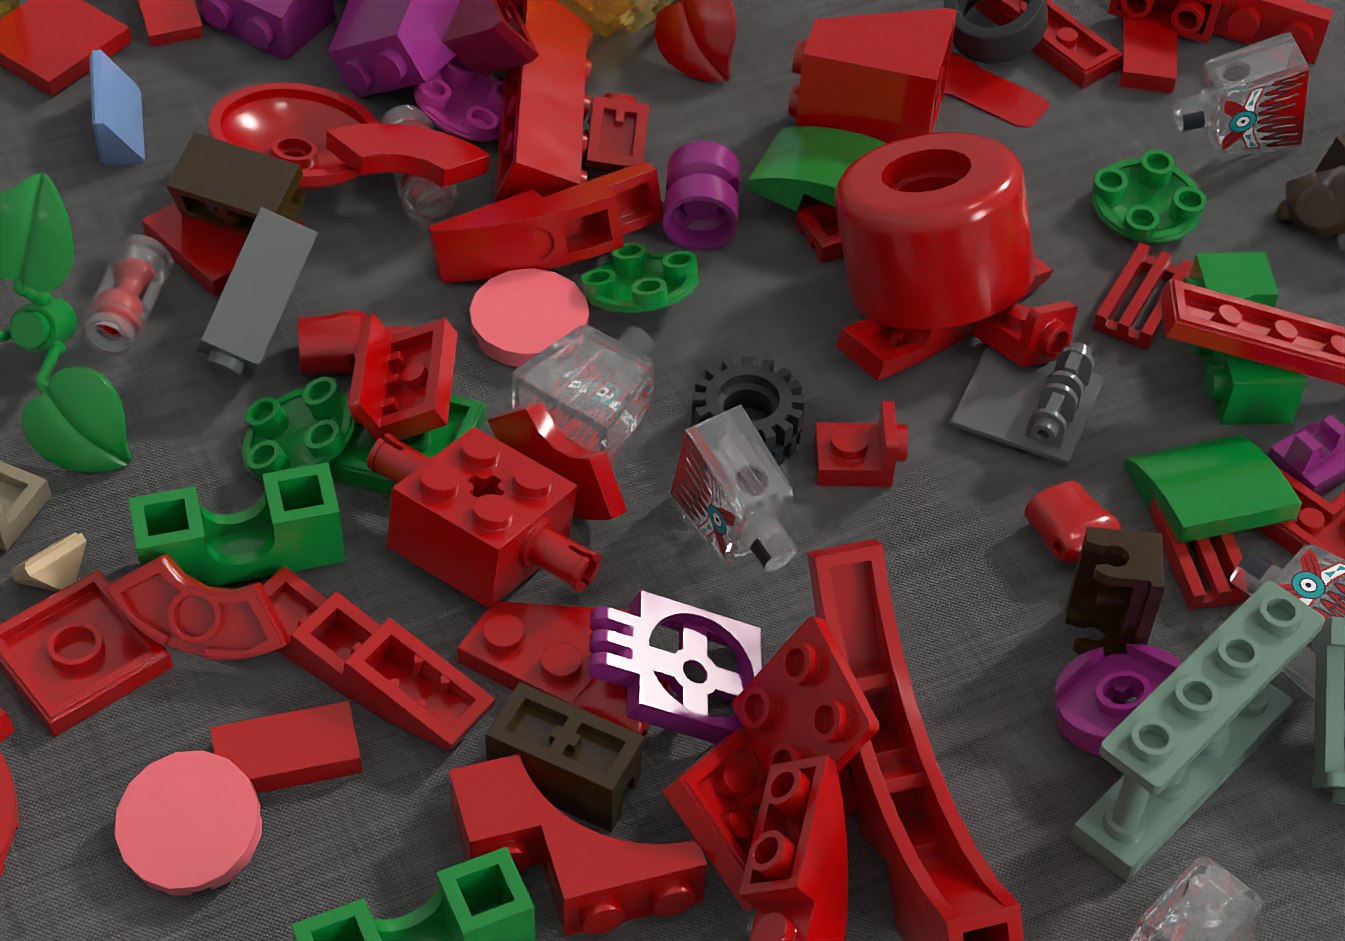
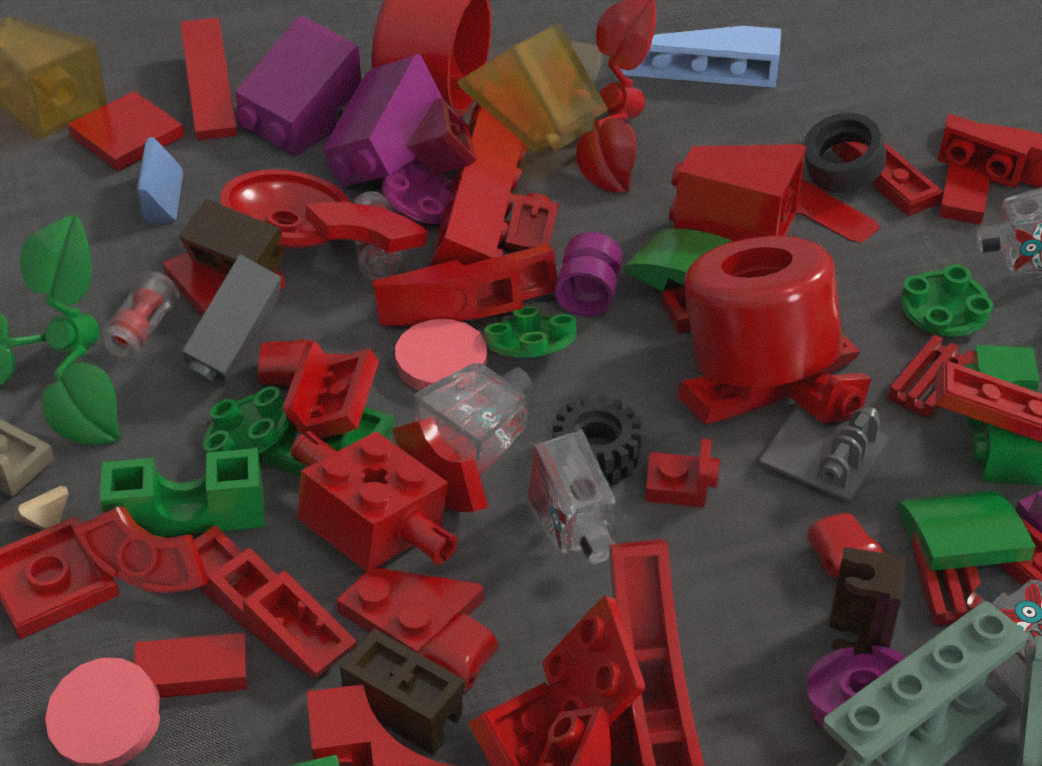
camera: 10 degrees right, 5 degrees down
(626, 660) = (460, 617): piece -> none

